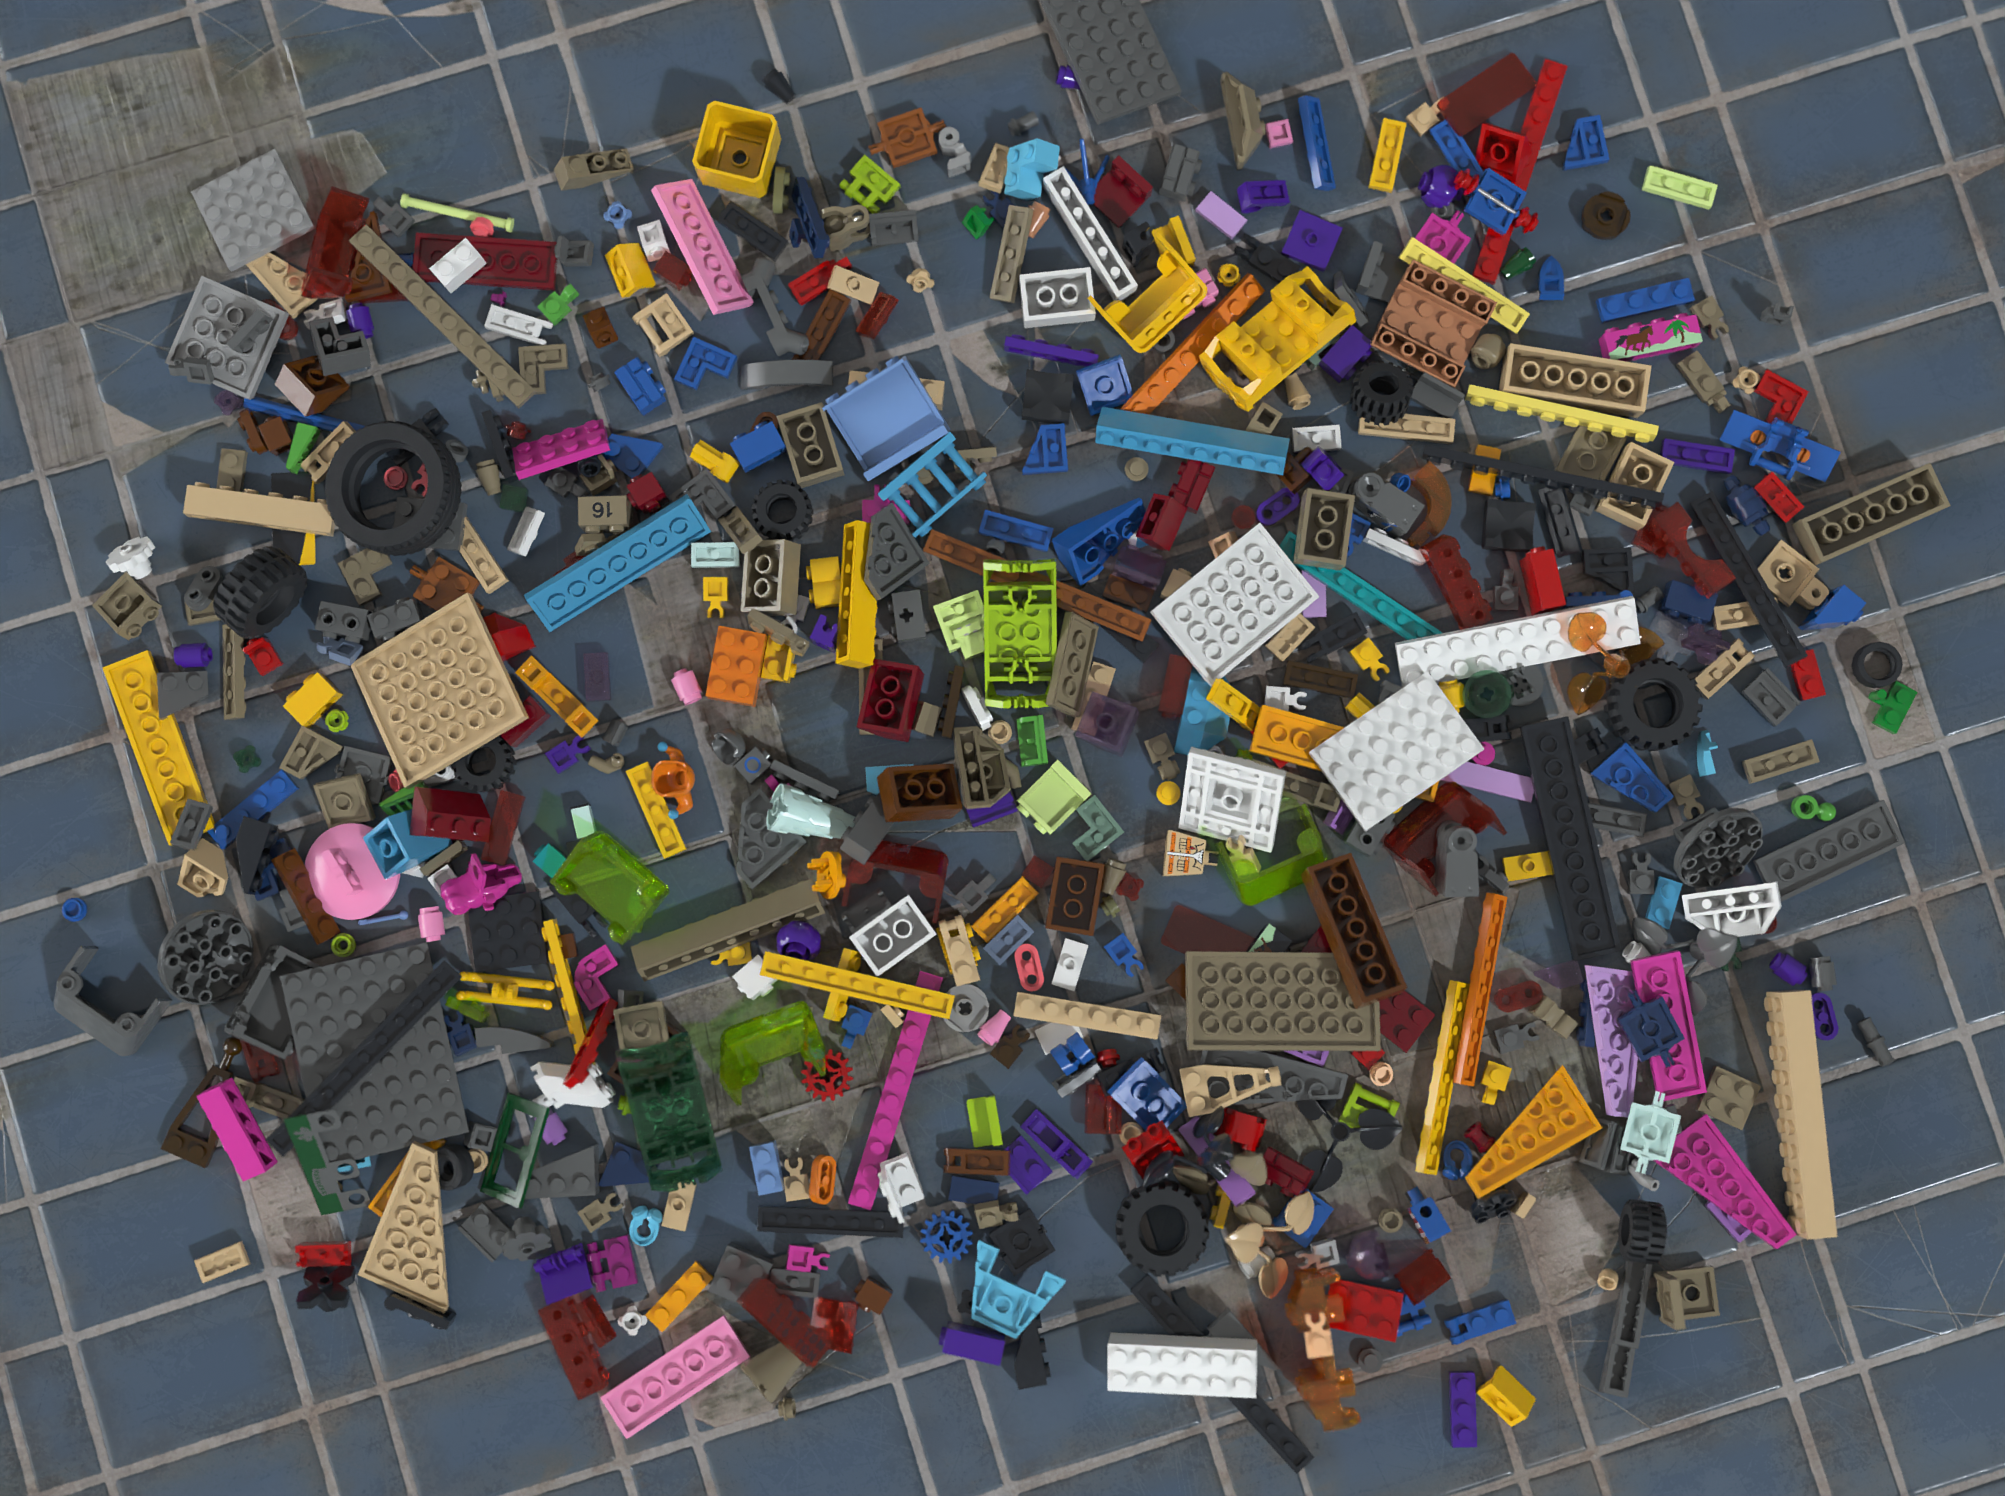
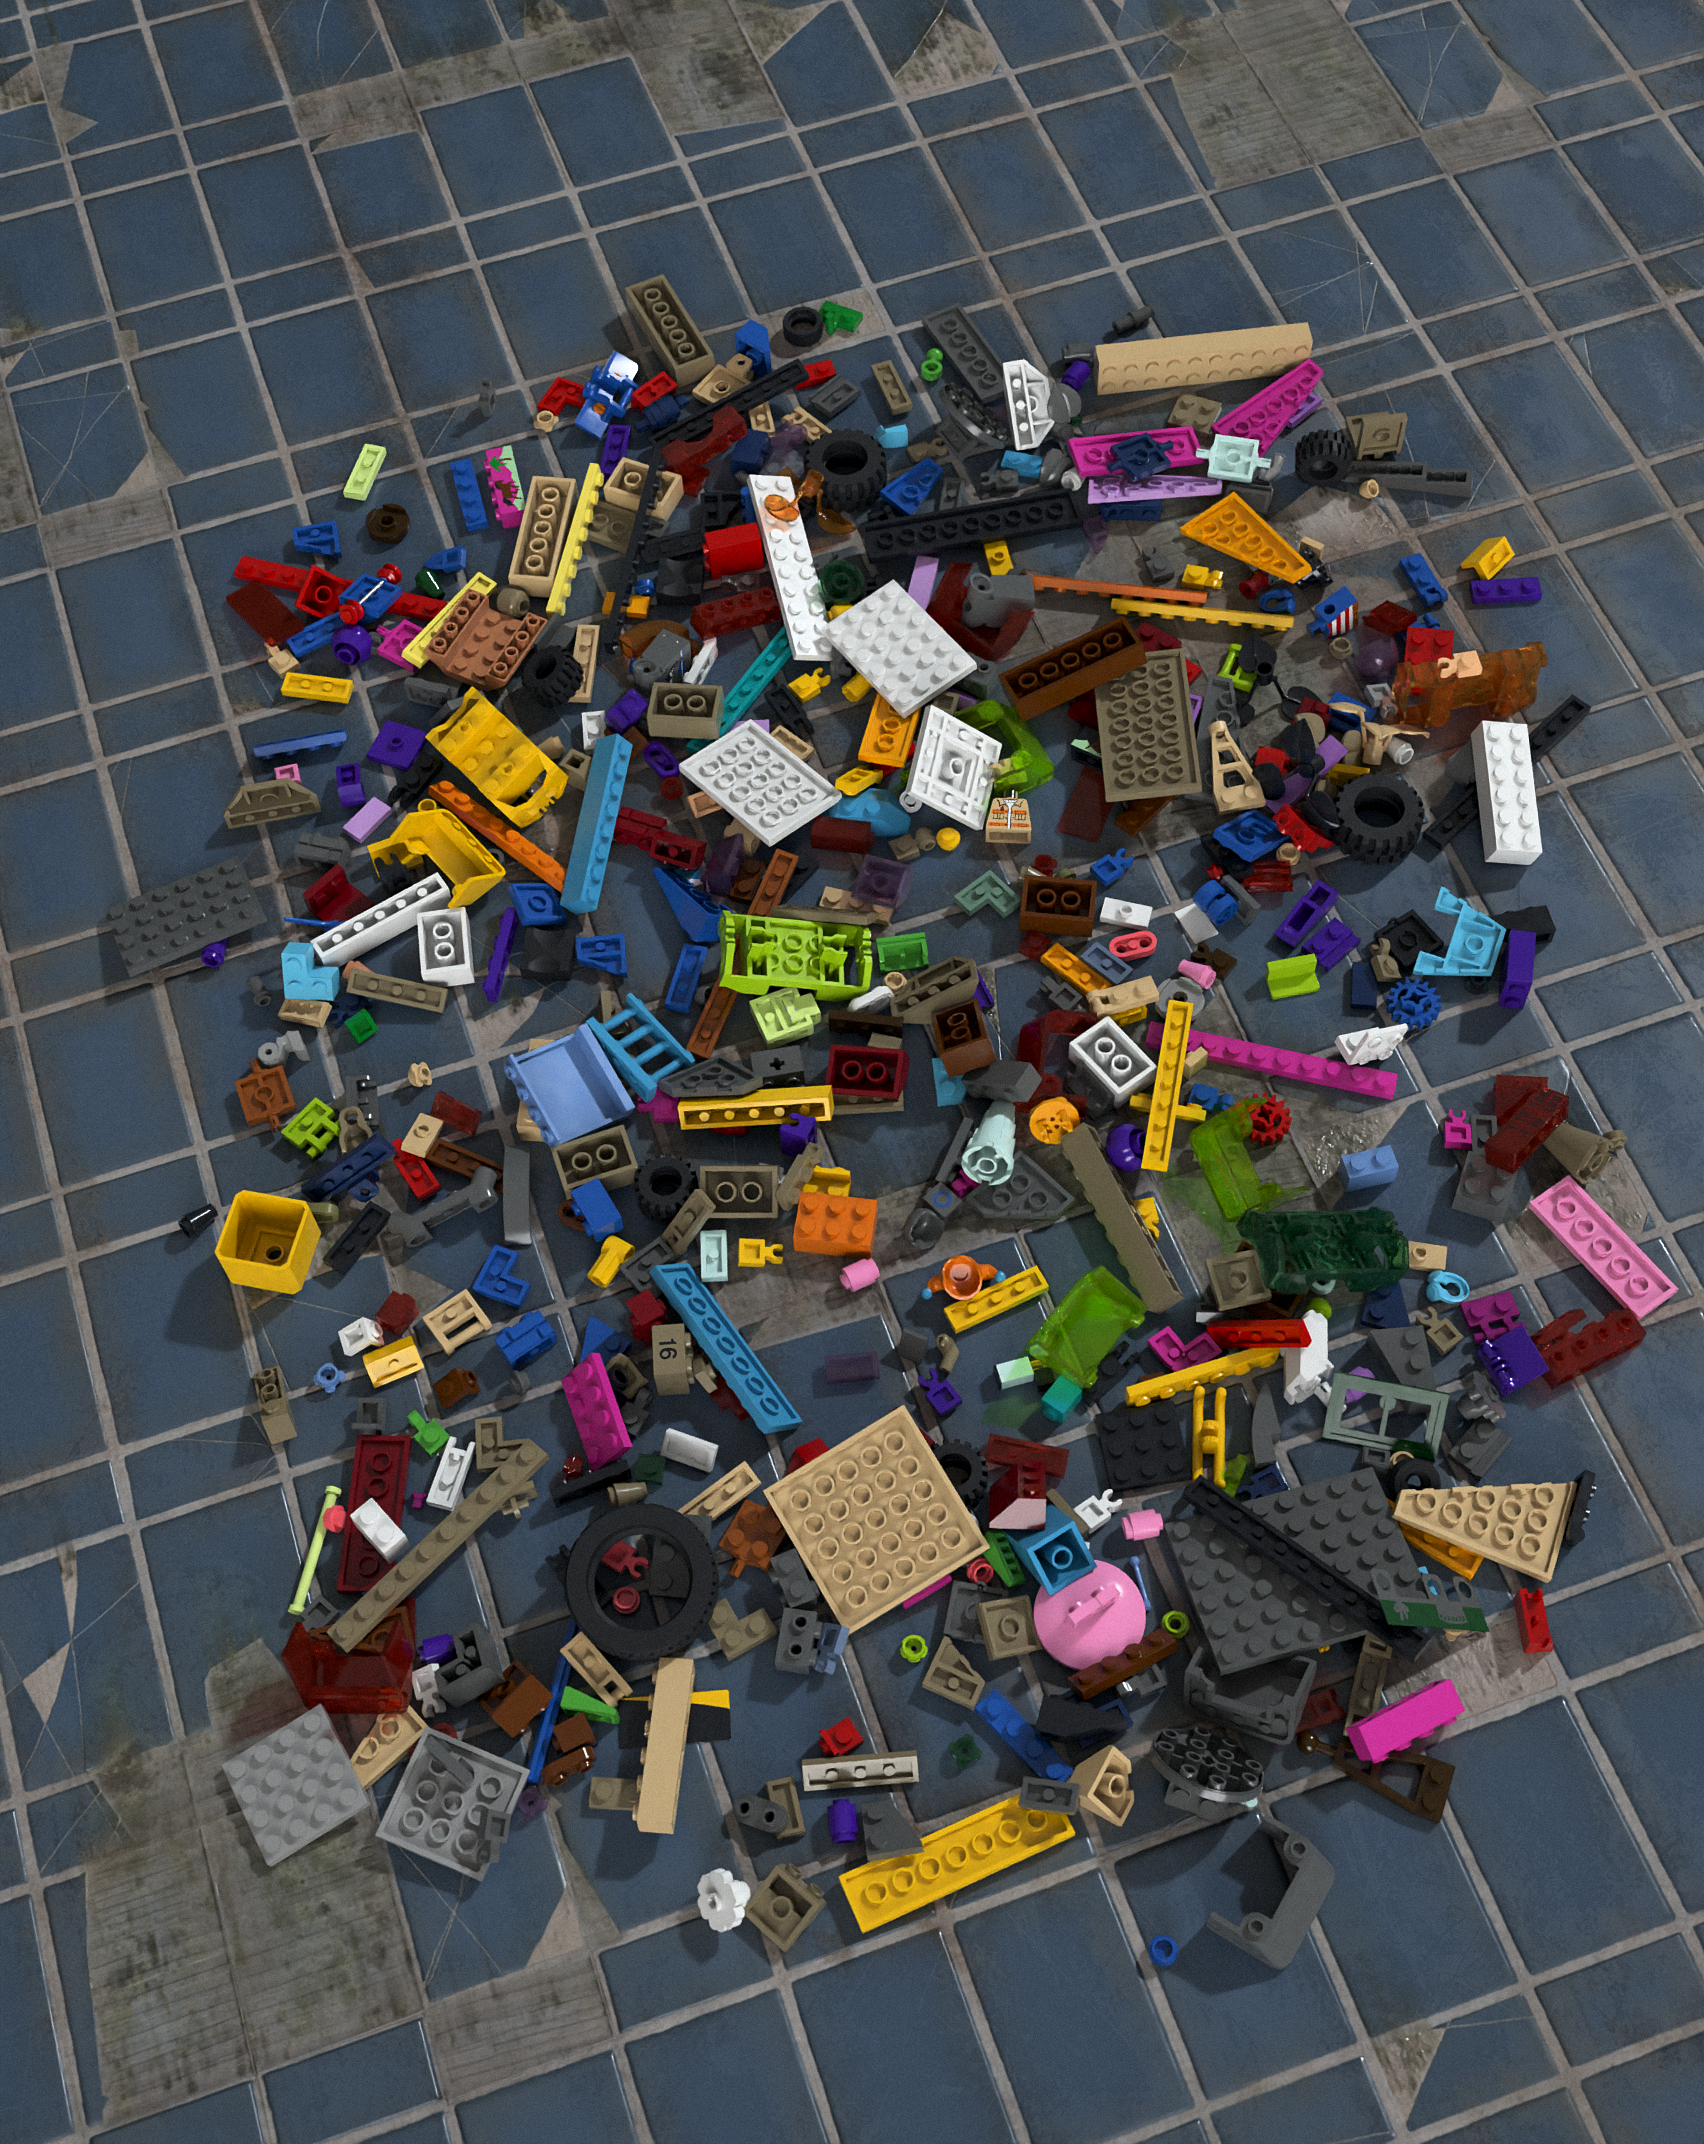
camera: 85 degrees left, 25 degrees down
(222, 1262) = (1562, 1738): tan plate -> none
(260, 592) = (768, 1721): black tyre -> none
(312, 699) = (890, 1675): yellow brick -> none
(325, 1289) = (1572, 1608): black plant -> none
(479, 886) = (1095, 1470): dark pink piece -> none
(557, 696) = (881, 1401): light orange slope -> none
(632, 1328) = (1554, 1288): white plate -> none
(679, 1296) = (1516, 1251): light orange plate -> none
(702, 246) = (371, 1281): bright pink plate -> none
(751, 982) = (1169, 1190): white head -> none
(796, 1184) = (1378, 1140): tan plate -> none
(822, 1179) = (1381, 1119): orange plate -> none
(825, 580) = (743, 1145): yellow brick -> none
(828, 1221) = (1415, 1111): black plate -> none
(872, 1295) = (1484, 1066): reddish brown brick -> none
(977, 1161) = (1334, 979): reddish brown plate -> none
(1052, 798) = (957, 931): yellowish green panel -> none
(1087, 1015) = (1175, 893): tan brick -> none
(1136, 469) = (623, 878): dark tan plate -> none
(1281, 699) = (849, 749): white plate -> none
(1320, 679) = (830, 720): dark brown plate -> none
(1345, 354) = (515, 708): dark purple brick -> none
(1381, 1074) = (1204, 659): light nougat plate -> none
(1517, 996) = (1121, 566): clear red plate -> none
(1555, 1017) = (1130, 536): dark tan leg -> none
(1703, 381) = (546, 451): dark tan hinge -> none
(1708, 315) = (477, 449): dark tan plate -> none

